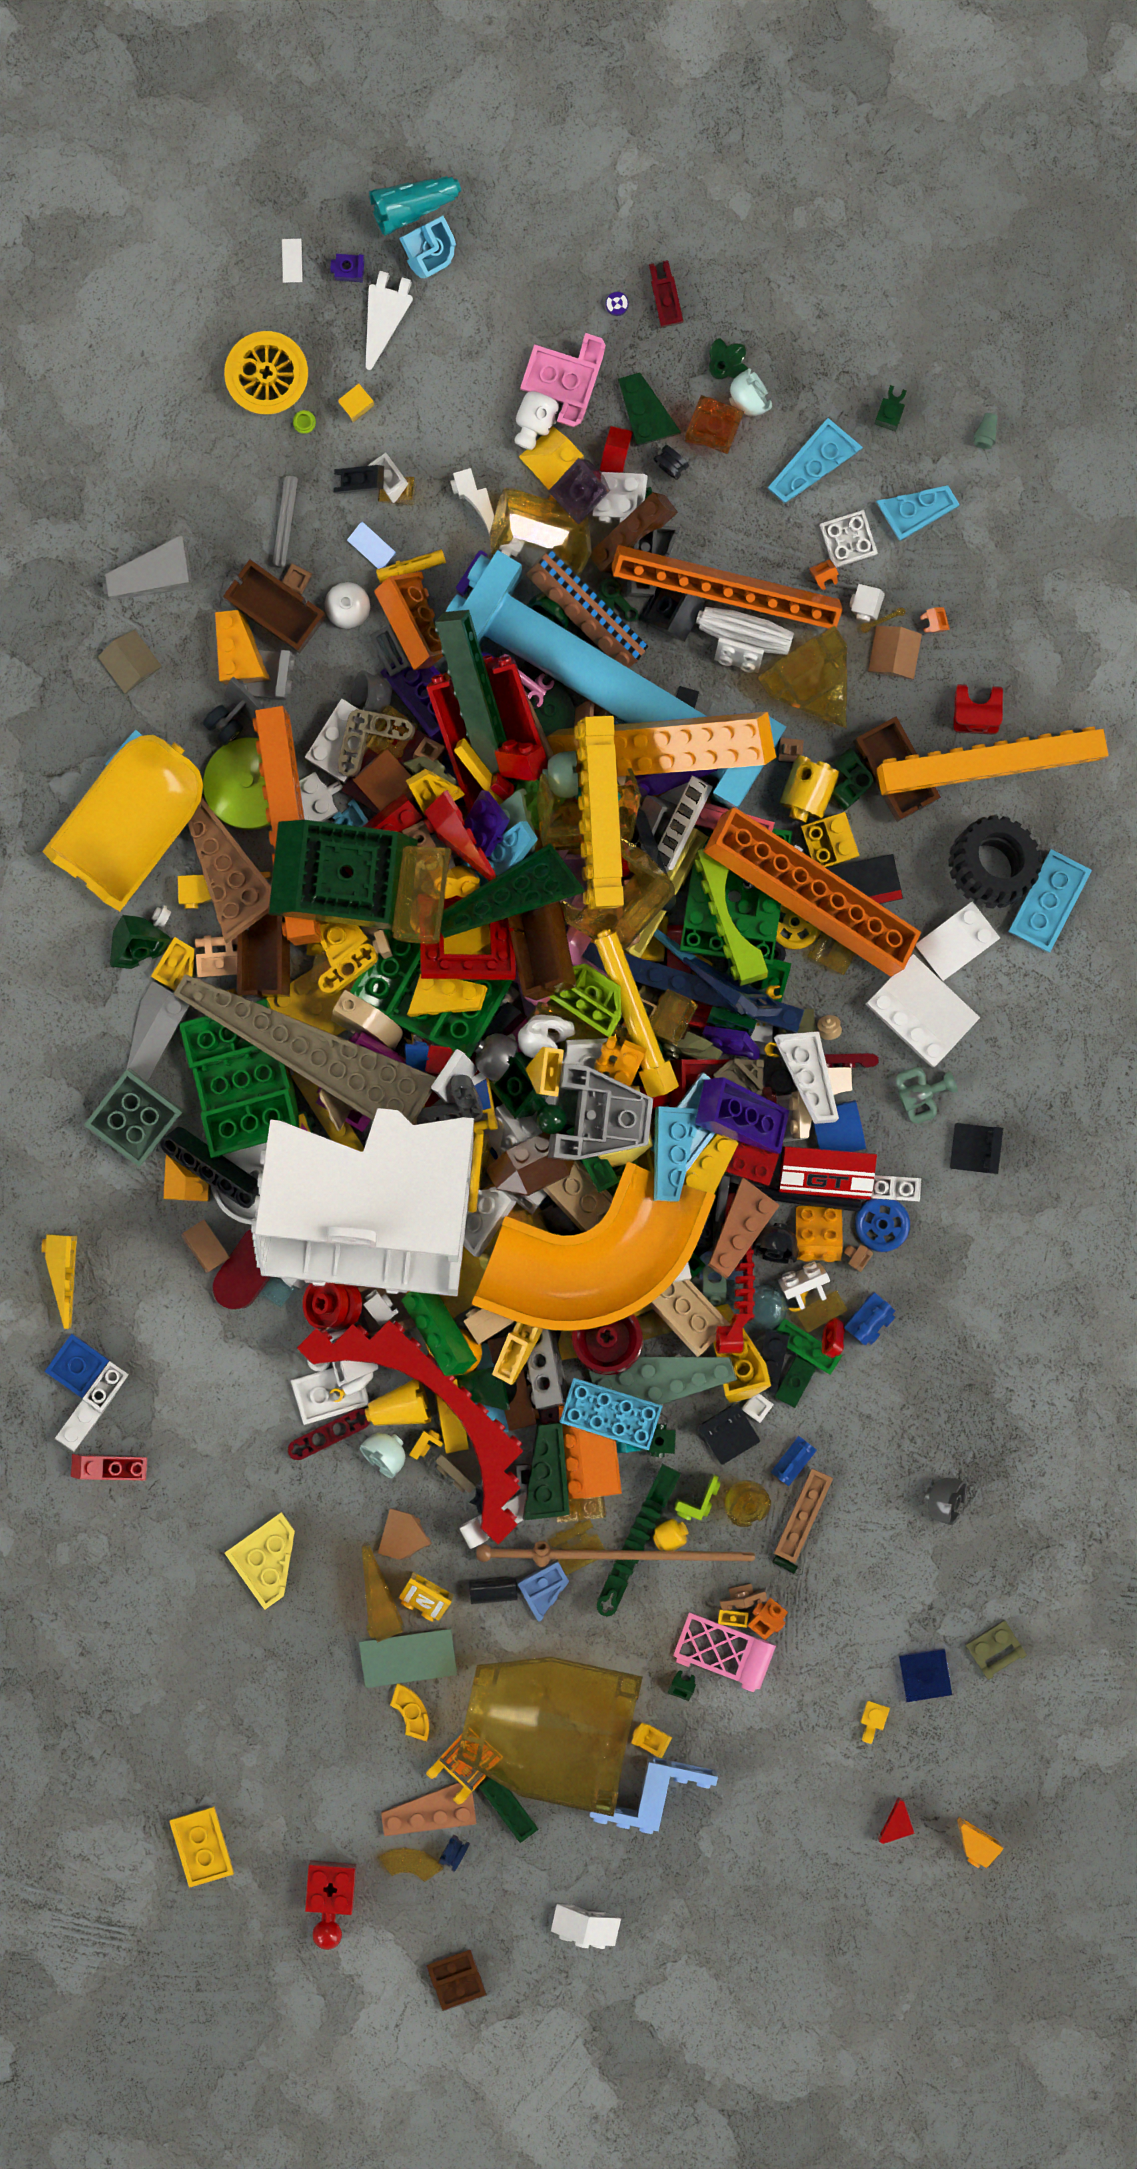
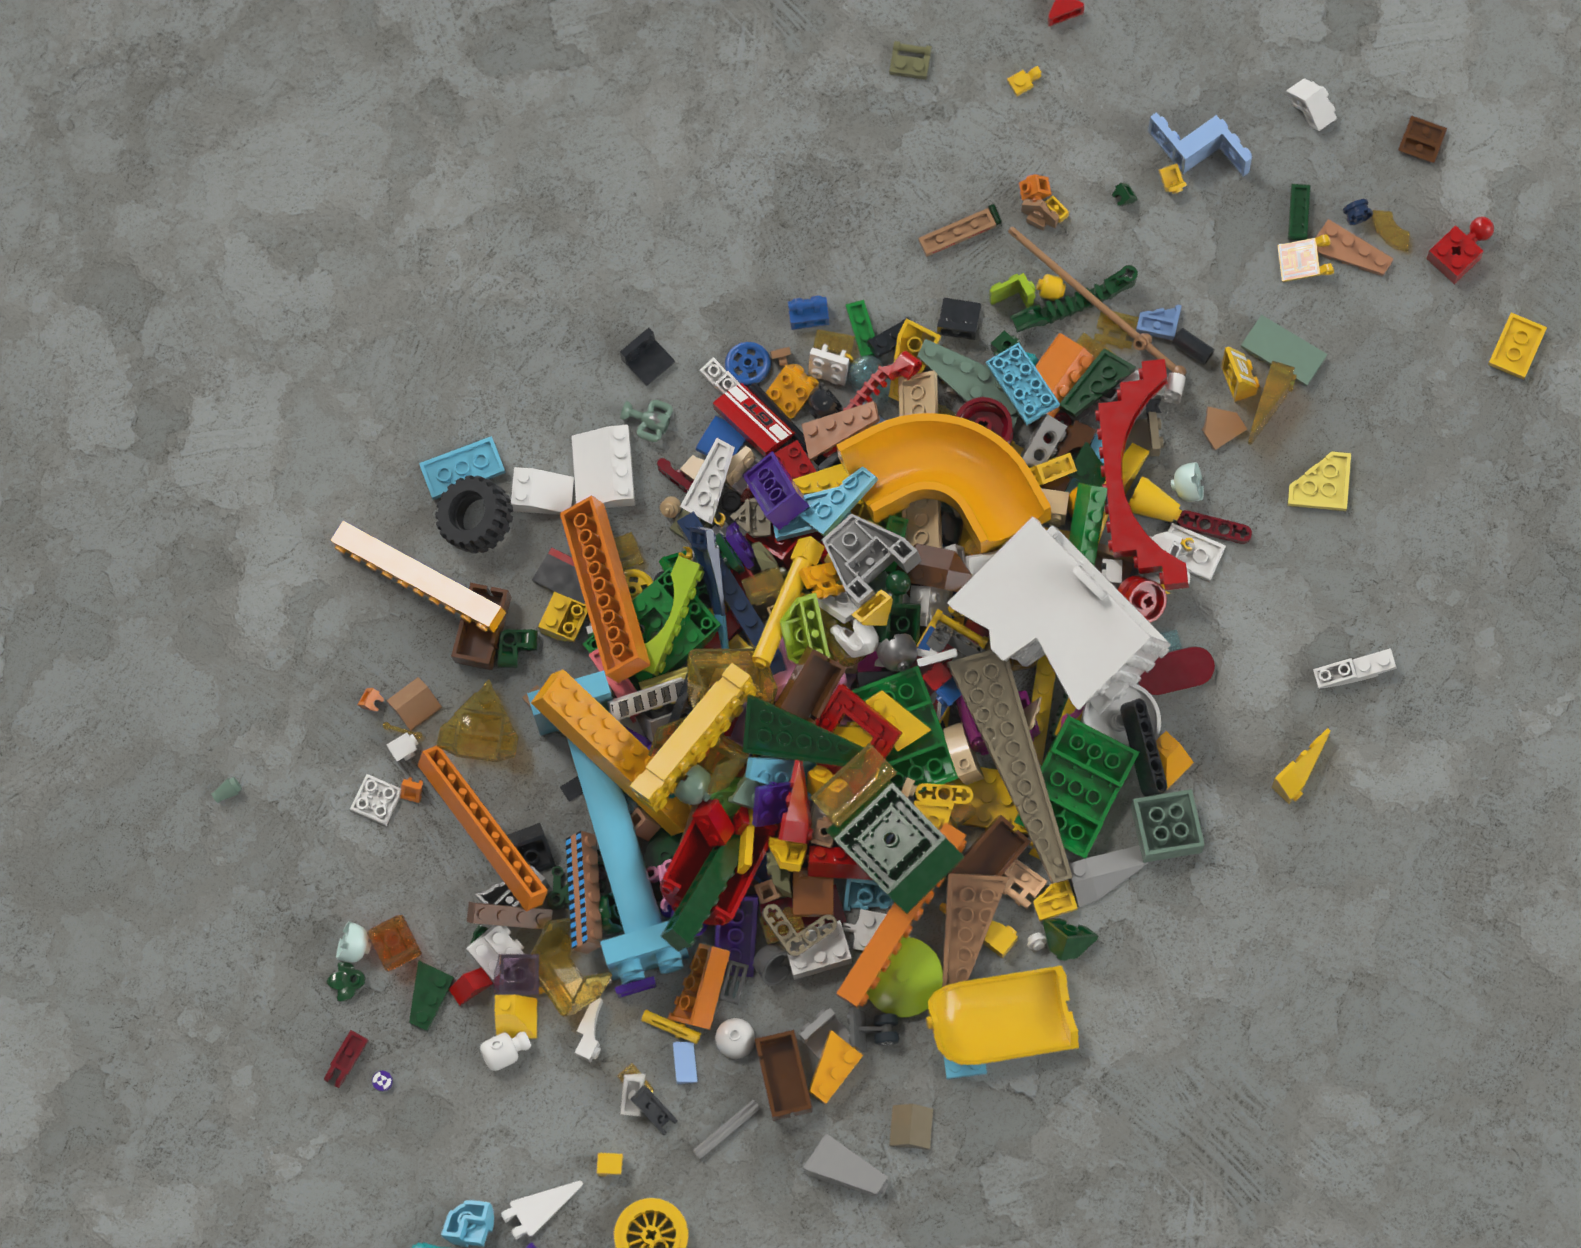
camera: 135 degrees left, 15 degrees down
(77, 1365) = (1342, 703): blue plate -> none
(108, 1467) = (1377, 624): red slope -> none
(205, 1246) = (1192, 707): medium nougat hinge -> none
(297, 578) = (753, 1085): medium nougat tile -> none
(304, 422) = (655, 1184): lime plate -> none
(412, 1710) = (1309, 318): yellow tile -> none
(422, 1445) = (1160, 469): yellow bracket -> none
(551, 1730) = (1232, 225): clear yellow windscreen -> none
(566, 377) = (460, 1059): bright pink piece -> none
(671, 462) = (442, 944): black wheel -> none
(714, 1292) = (891, 405): sand green bracket -> none
(743, 637) = (499, 792): white plate -> none
(746, 1503) = (985, 267): clear yellow cylinder -> none
(753, 1662) = (1069, 171): bright pink piece -> none
(757, 1407) = (927, 319): white tile -> none
(793, 1461) = (933, 269): blue hinge -> none
(795, 1382) = (889, 315): dark green plate -> none
(808, 789) = (554, 658): yellow cylinder -> none
(817, 458) = (344, 867): medium azure wing -> none
(833, 1338) = (841, 317): red plate -> none
(890, 410) = (275, 854): dark green brick -> none
(915, 511) = (316, 778): medium azure wing -> none
(925, 1675) = (967, 80): clear blue plate -> none
(945, 1499) = (860, 168): dark grey cylinder -> none
(975, 717) = (401, 615): red piece -> none

